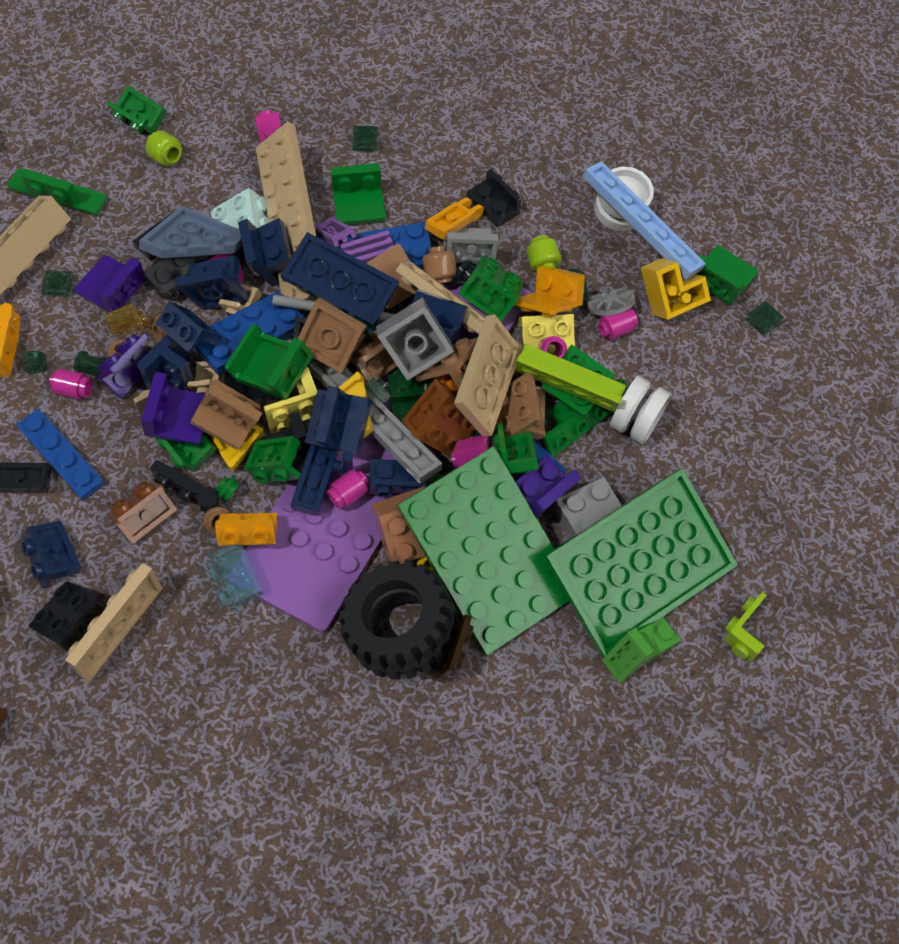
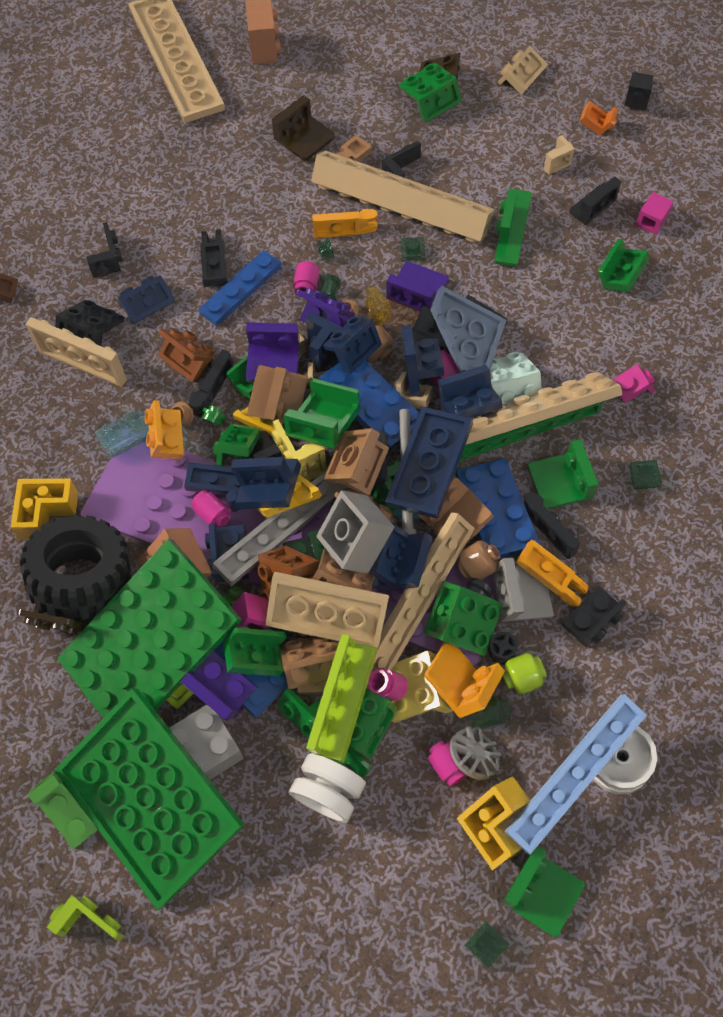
camera: 90 degrees right, 0 degrees up
(50, 116) = (596, 201): none -> black bracket
(80, 74) = (654, 213): none -> dark pink brick
(163, 148) = (581, 297): lime head -> none
(306, 671) = (38, 501): none -> yellow brick
(329, 233) = (513, 462): medium lavender tile -> none
(368, 245) = (480, 474): medium lavender tile -> none
(378, 389) = (315, 517): clear green plate -> none
(408, 213) = (550, 525): none -> black hinge
(518, 262) = (505, 642): none -> black wheel

